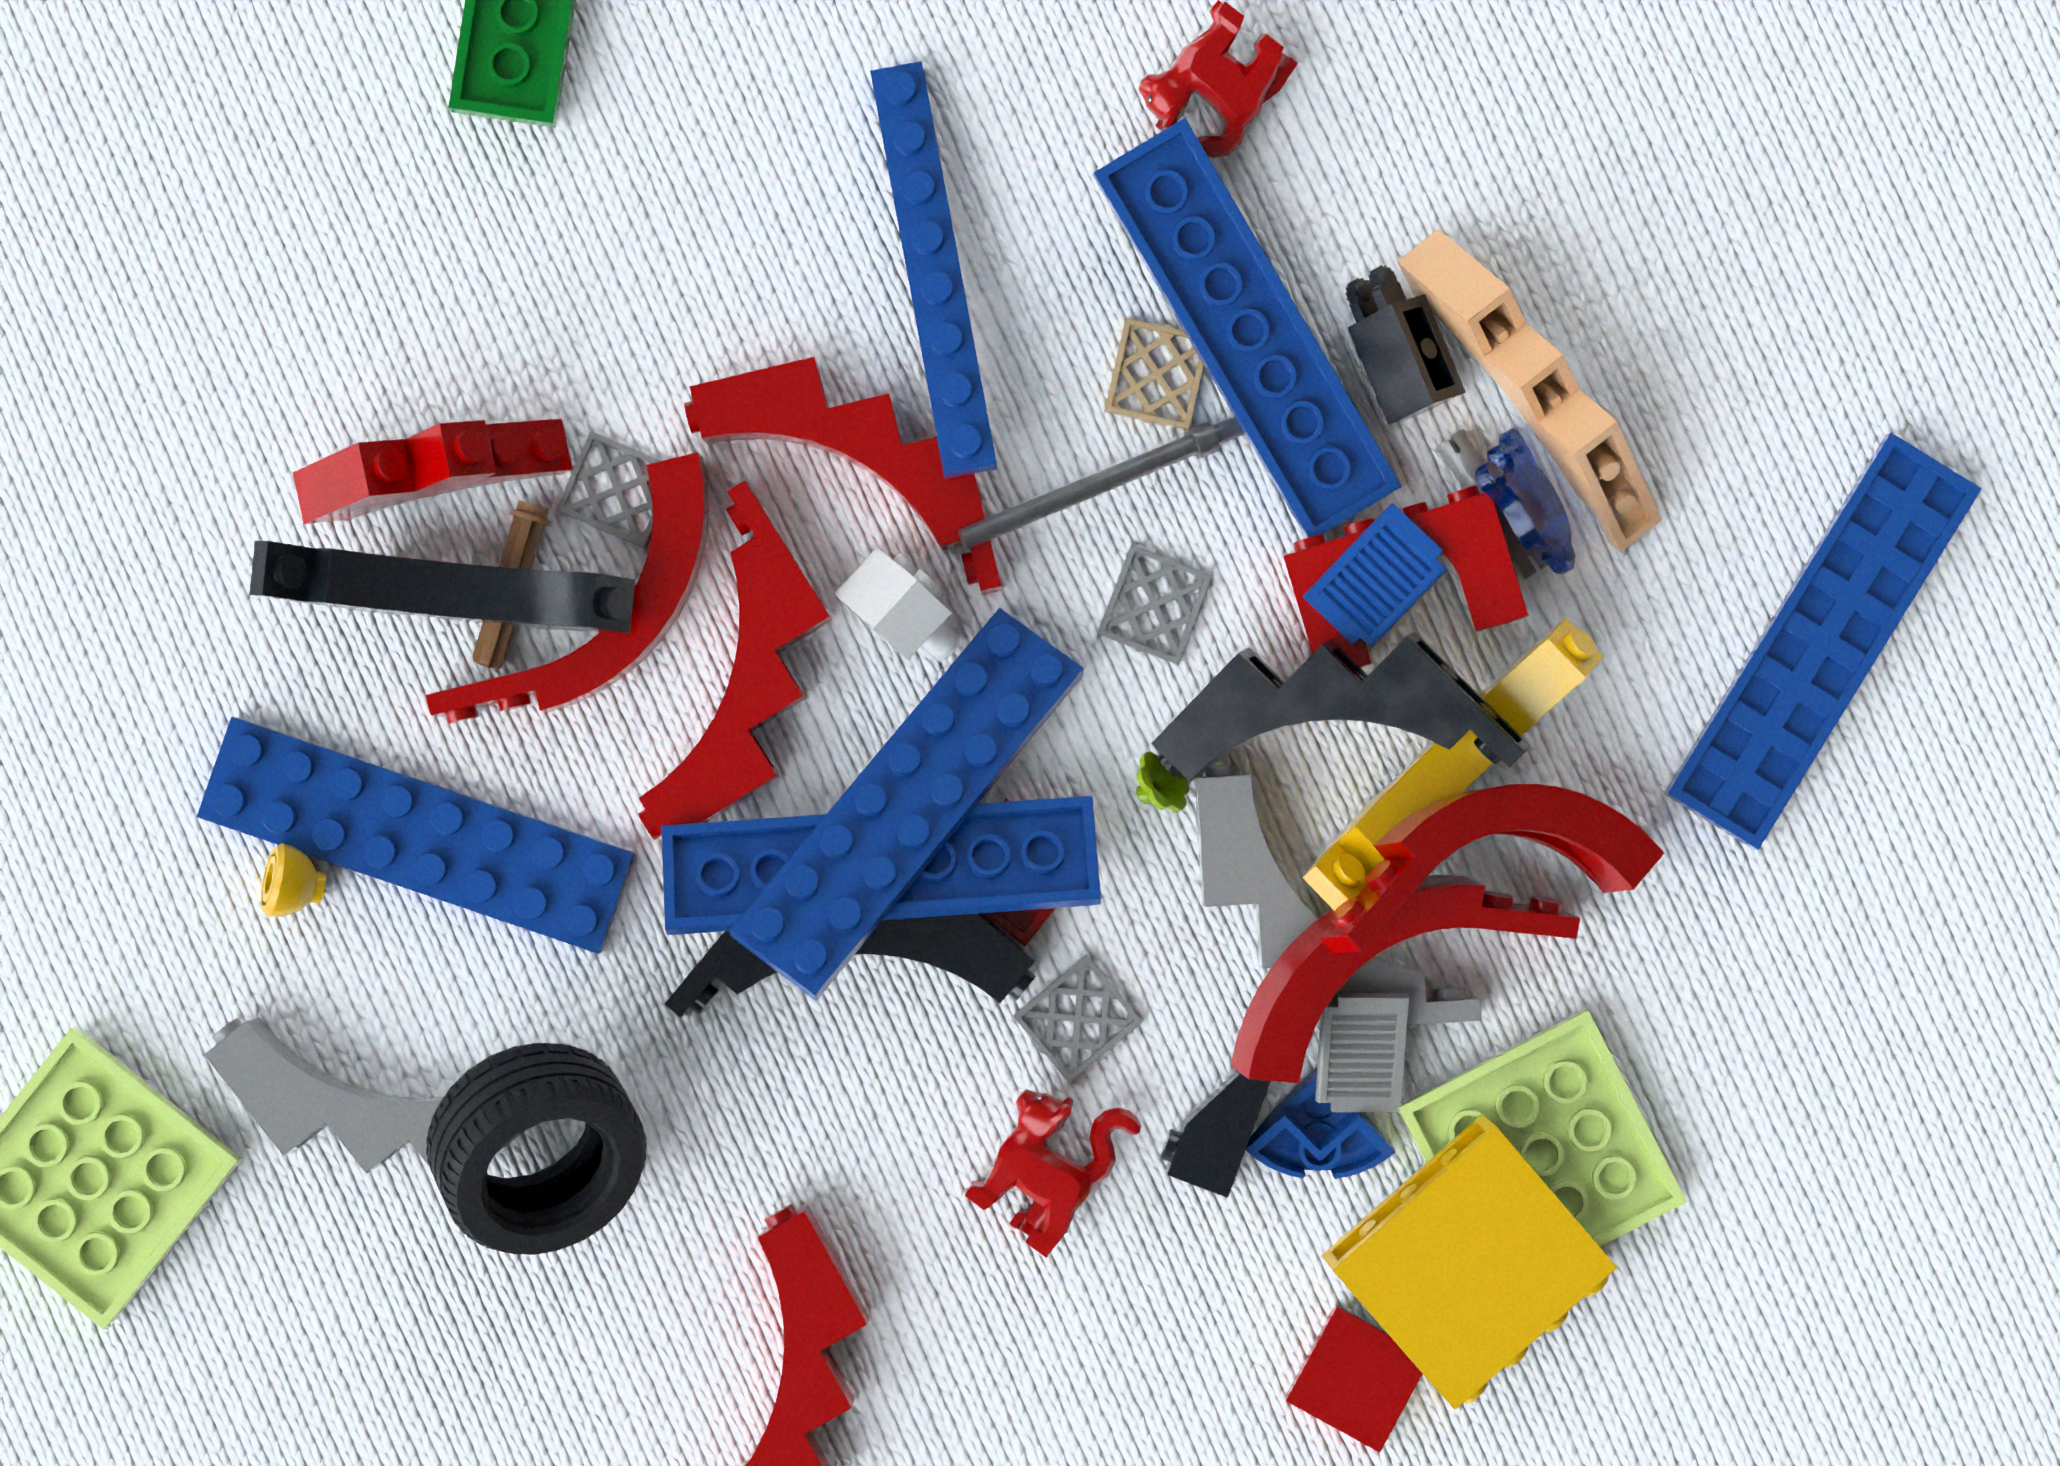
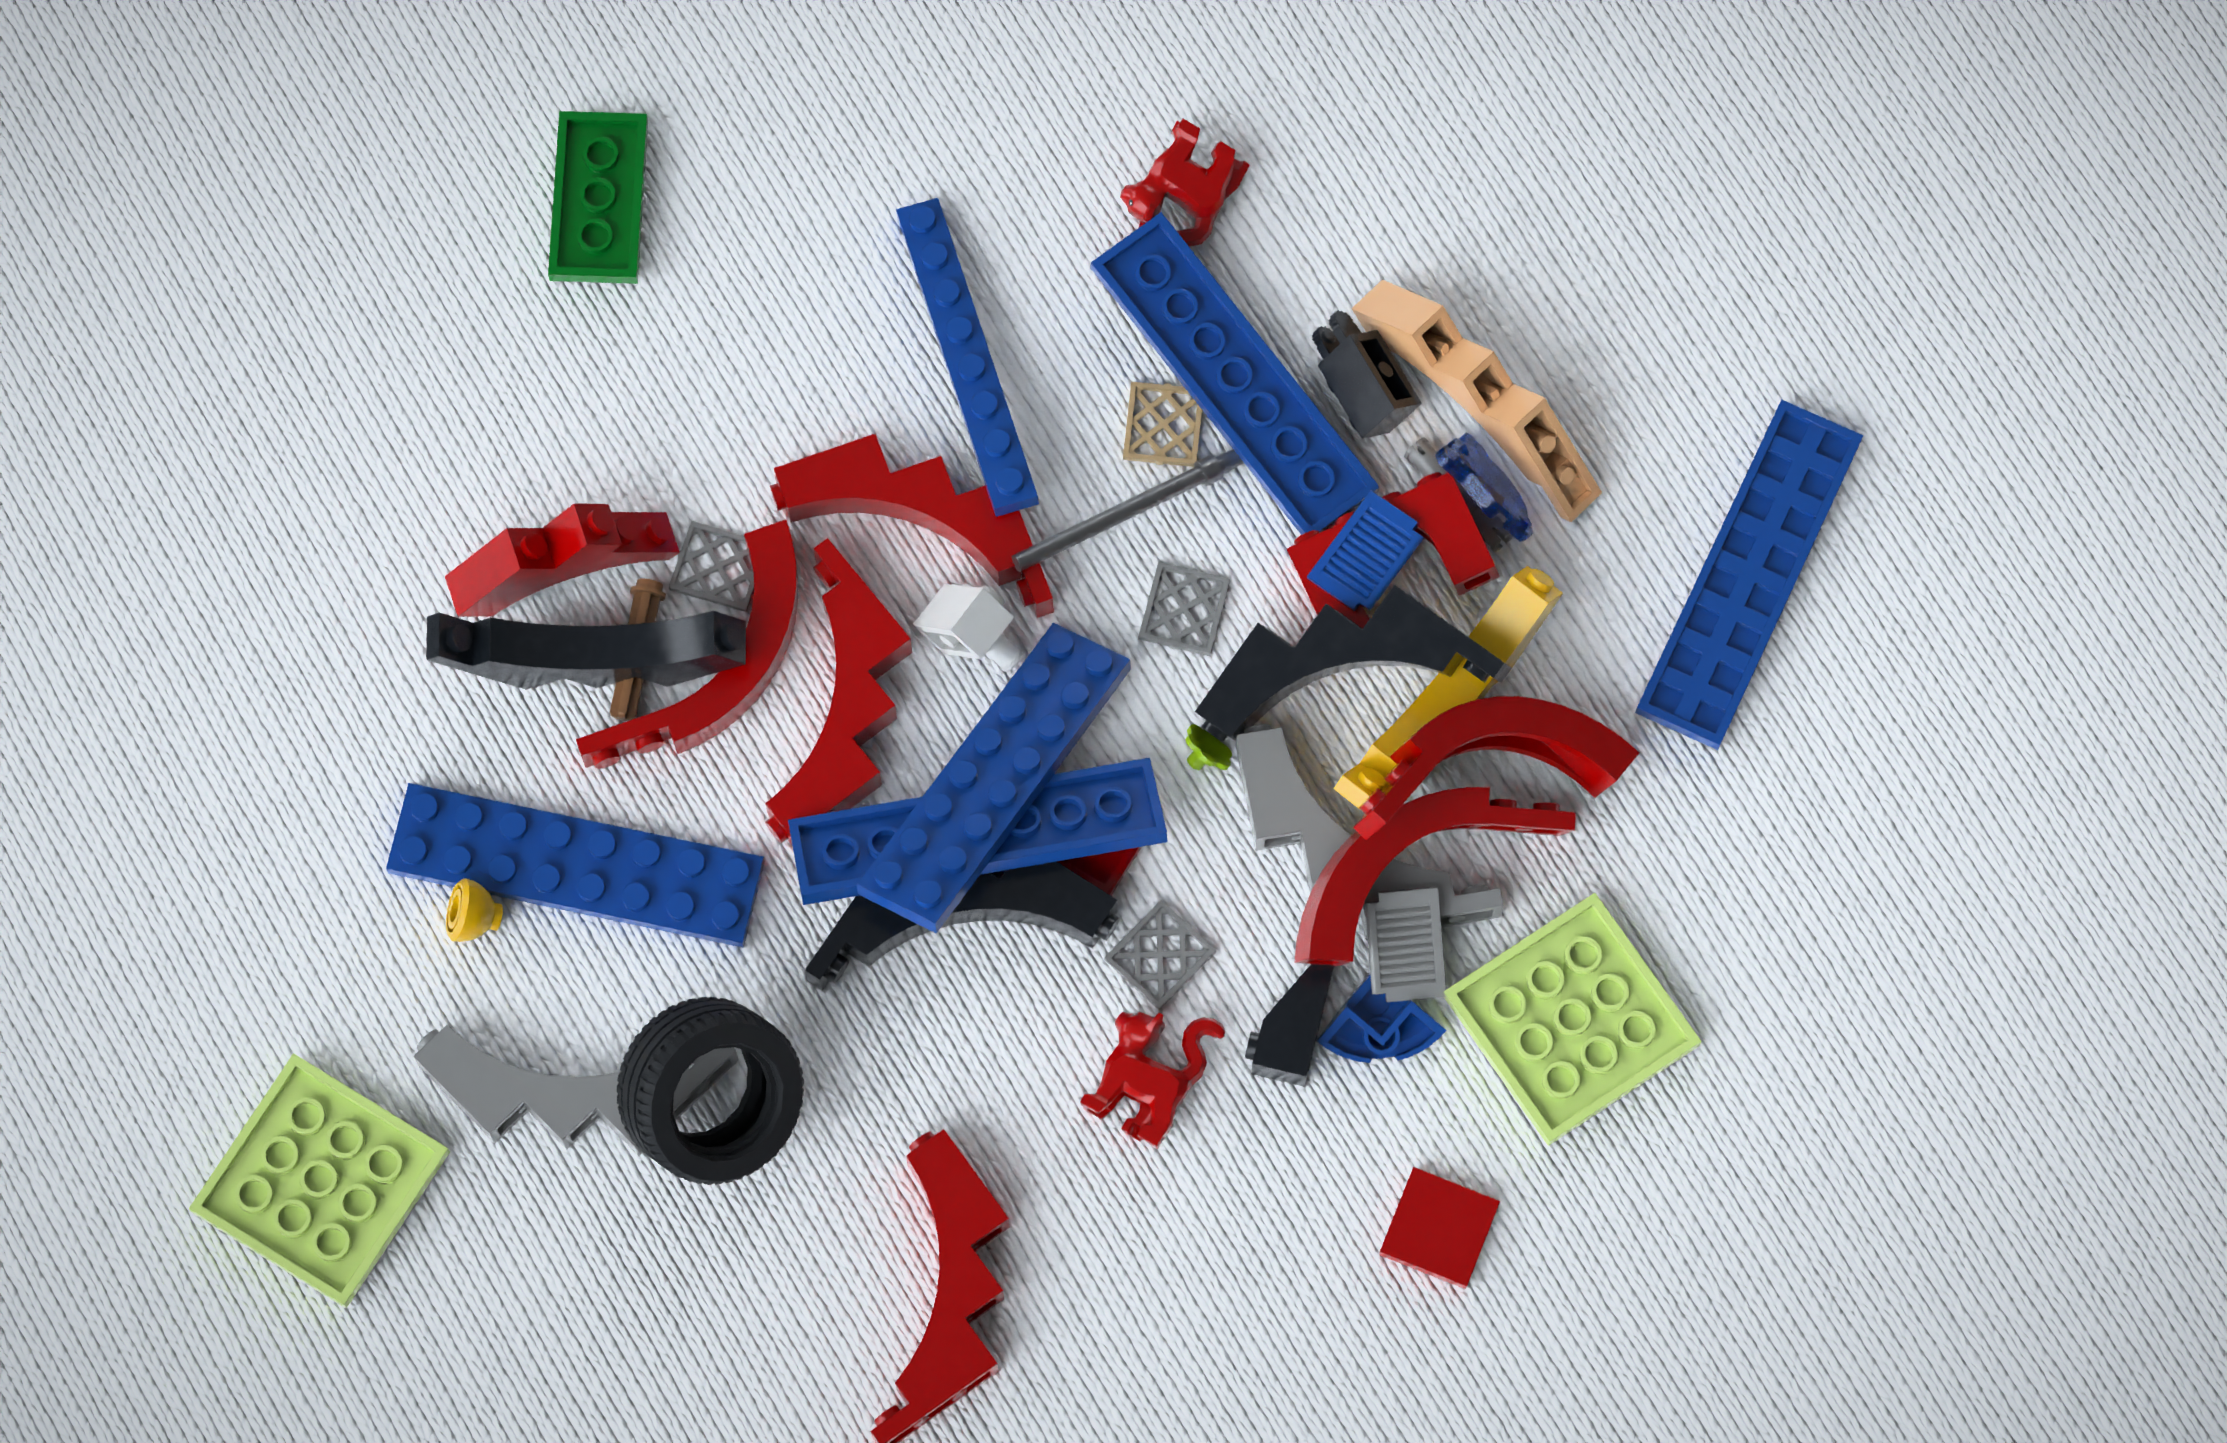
camera: 10 degrees left, 15 degrees down
(1469, 1262) = (1523, 1109): yellow panel -> none

